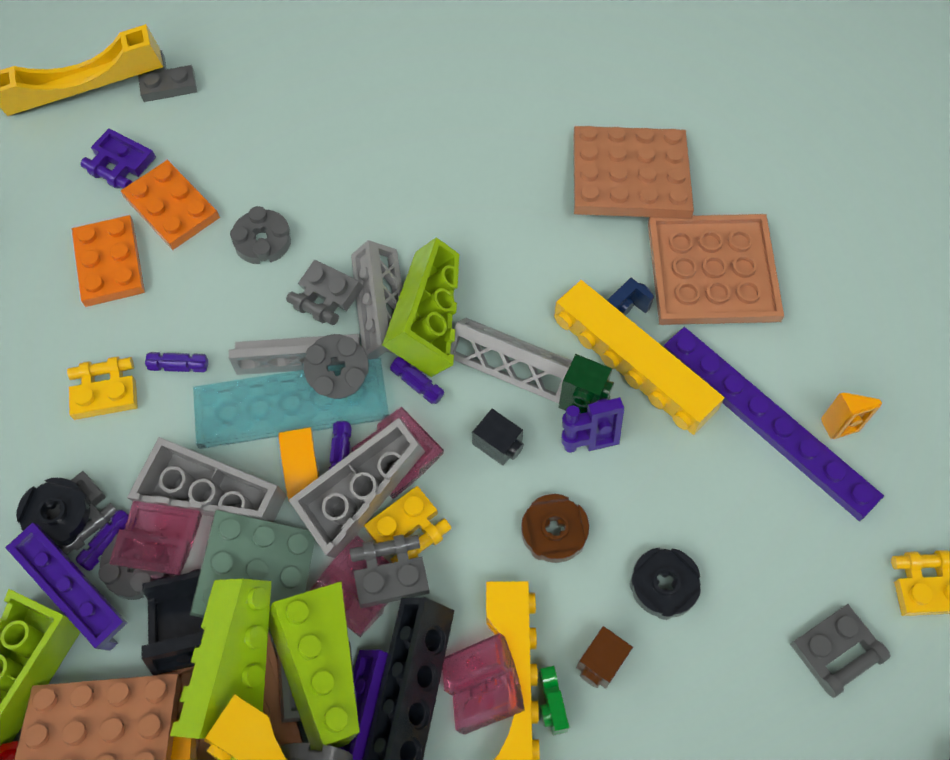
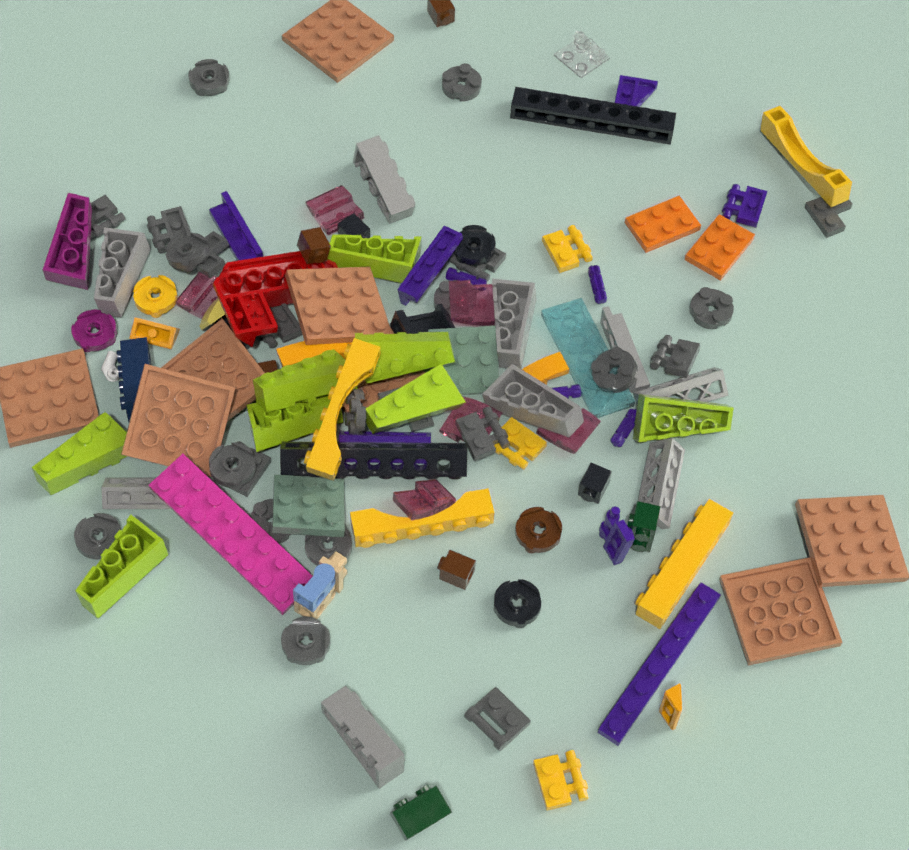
camera: 75 degrees right, 5 degrees down
(553, 710) = (419, 545): green plate -> none
(632, 294) = (732, 549): dark blue bracket -> none

